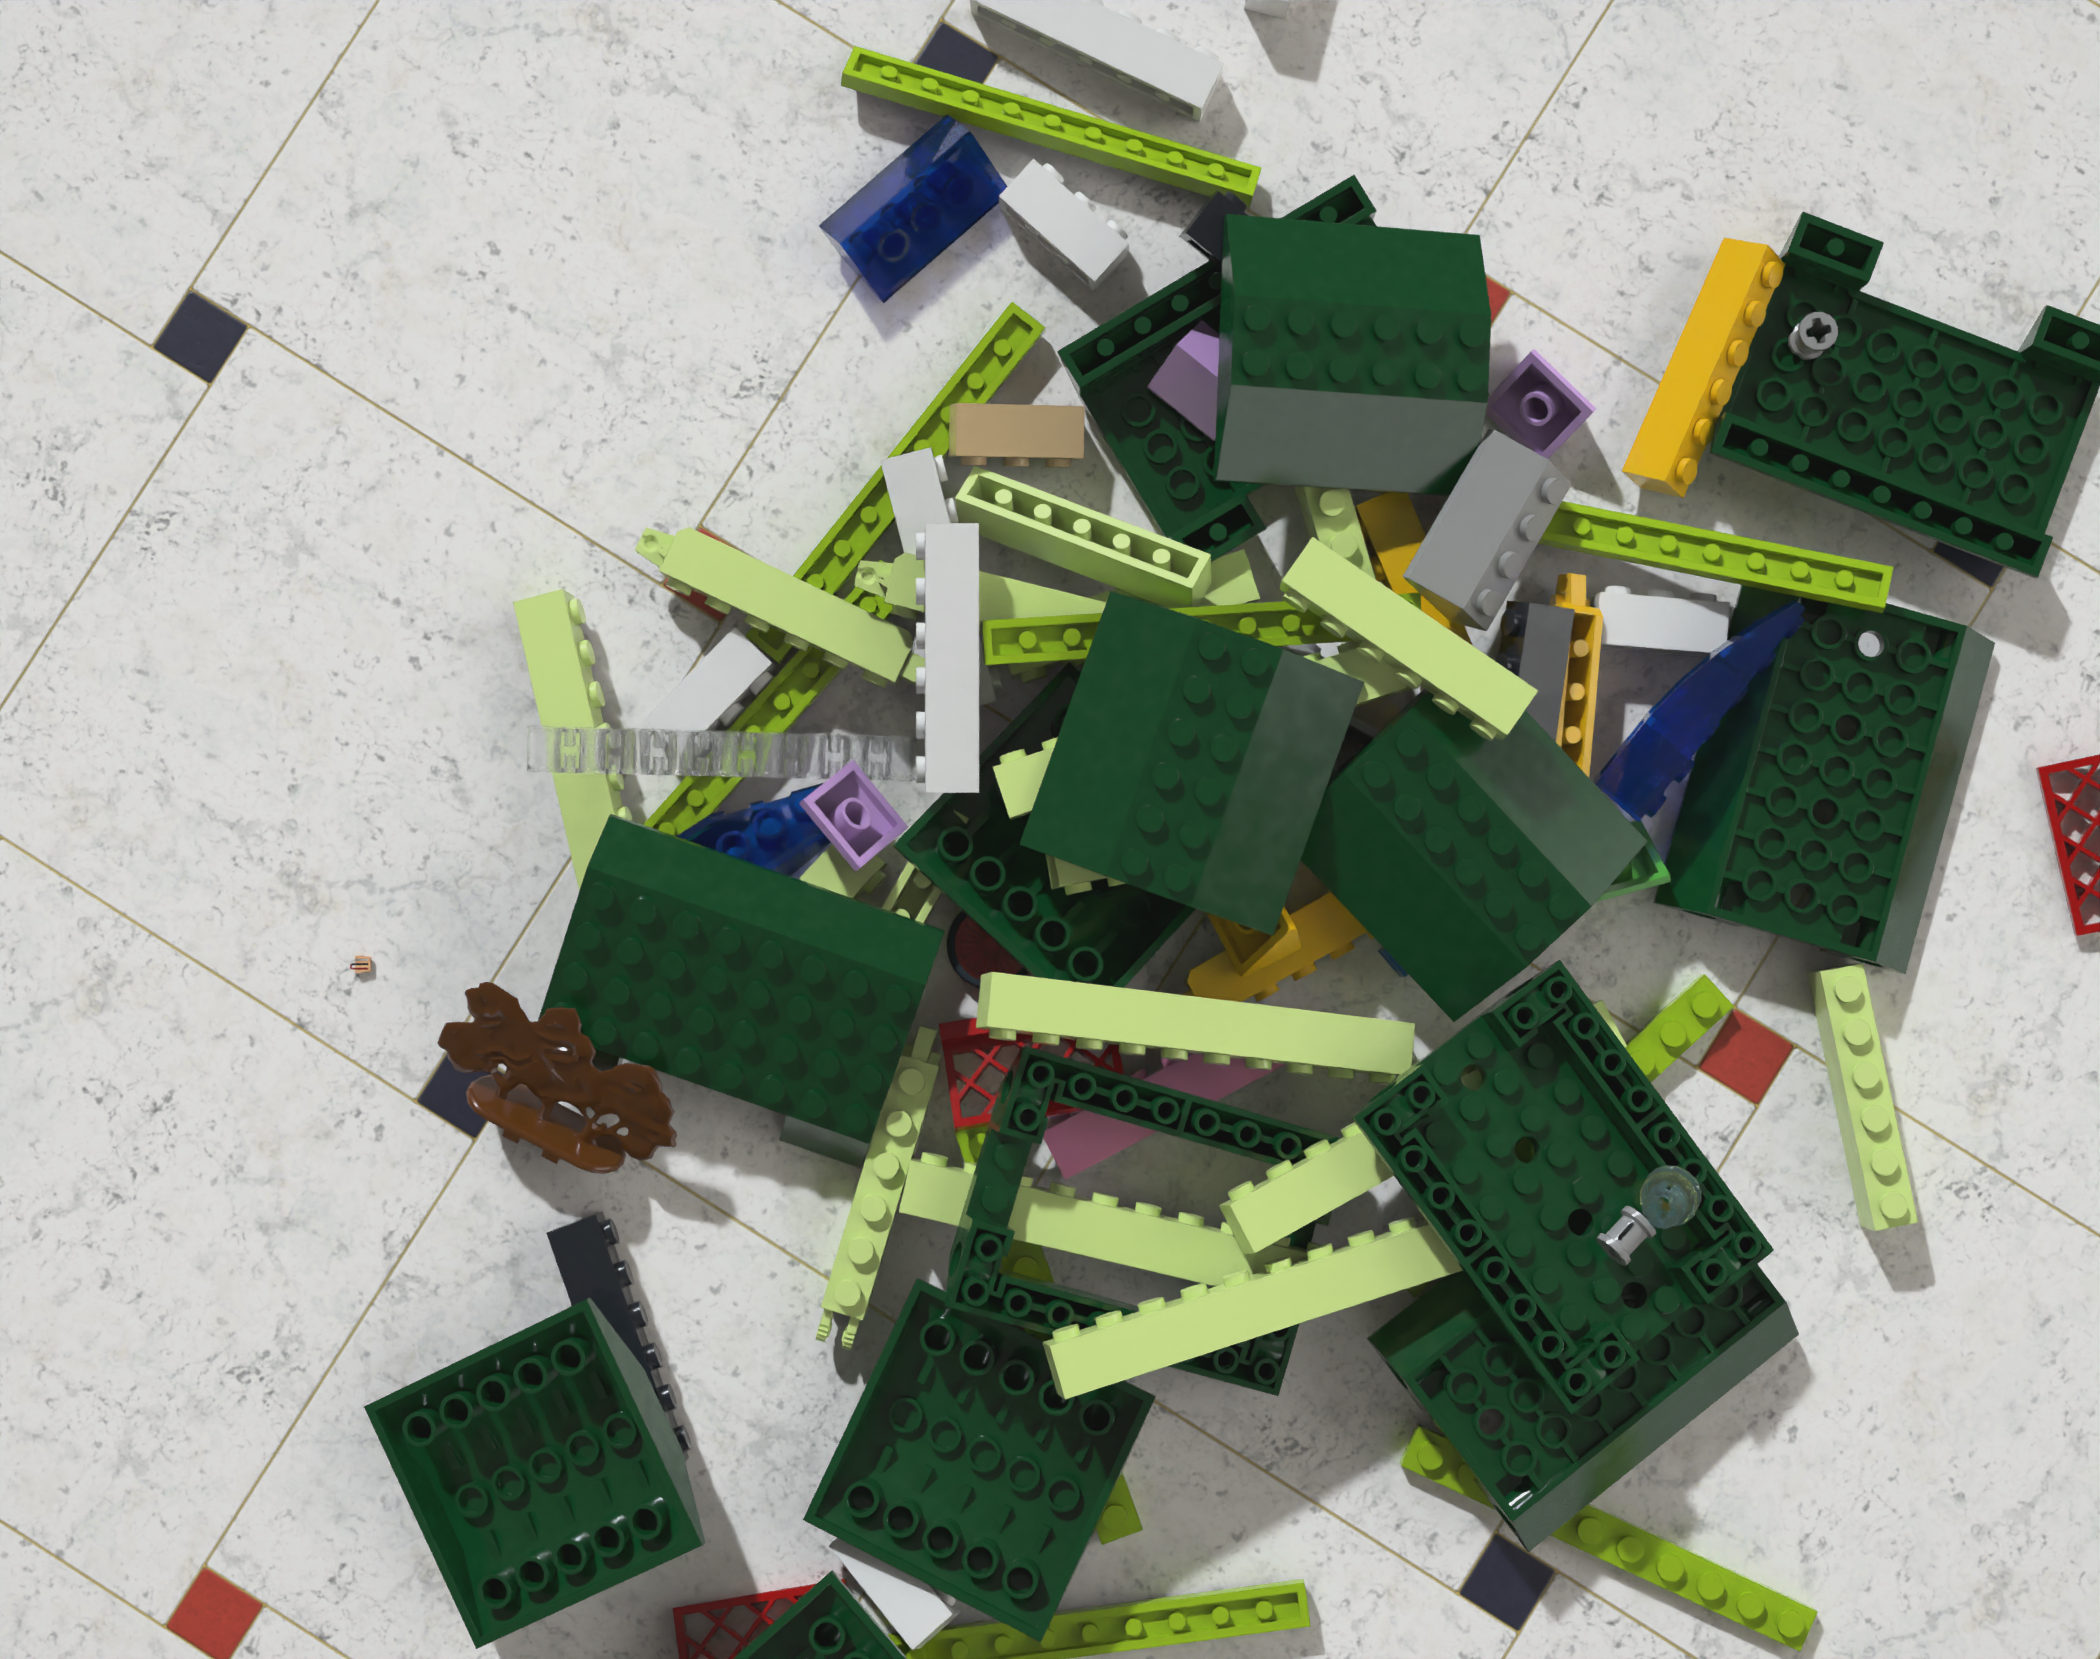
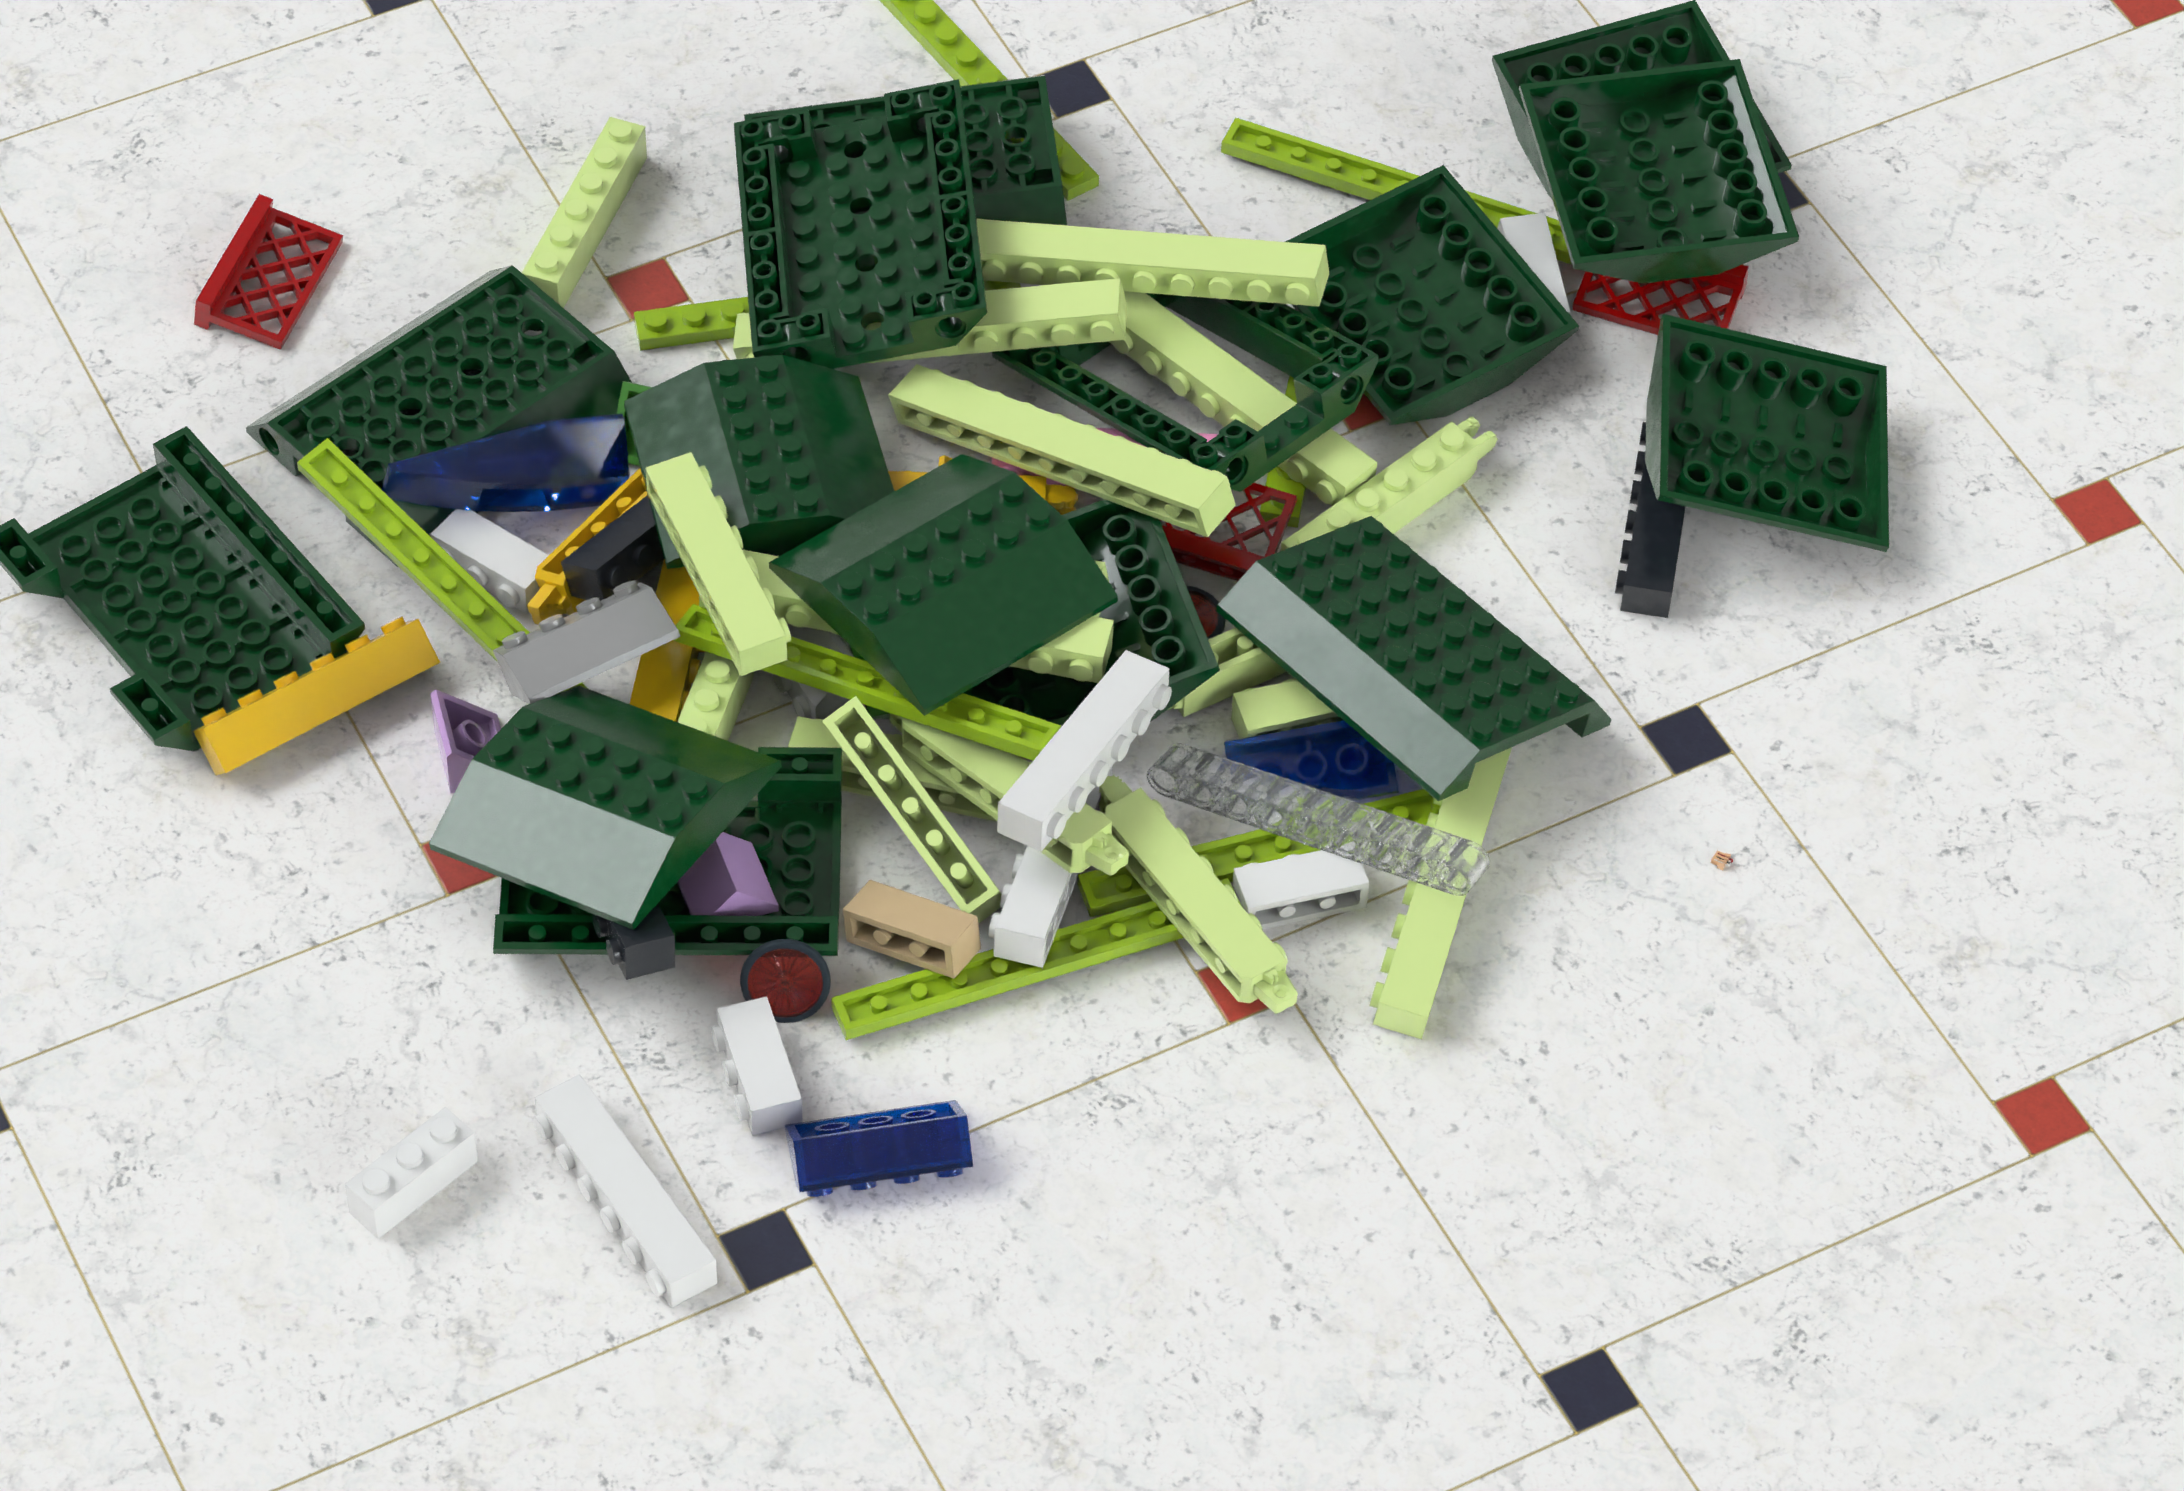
camera: 155 degrees left, 35 degrees down
(549, 1065) = (1610, 663): reddish brown plant -> none
(853, 815) = (1240, 717): lavender slope -> none
(1048, 125) = (718, 1146): lime plate -> none
(1091, 312) = (790, 976): none -> clear red wheel
(1625, 1235) = (836, 170): light grey bush -> none
(1683, 1196) = (786, 176): clear light blue piece -> none
(1818, 324) = (211, 659): light grey bush -> none

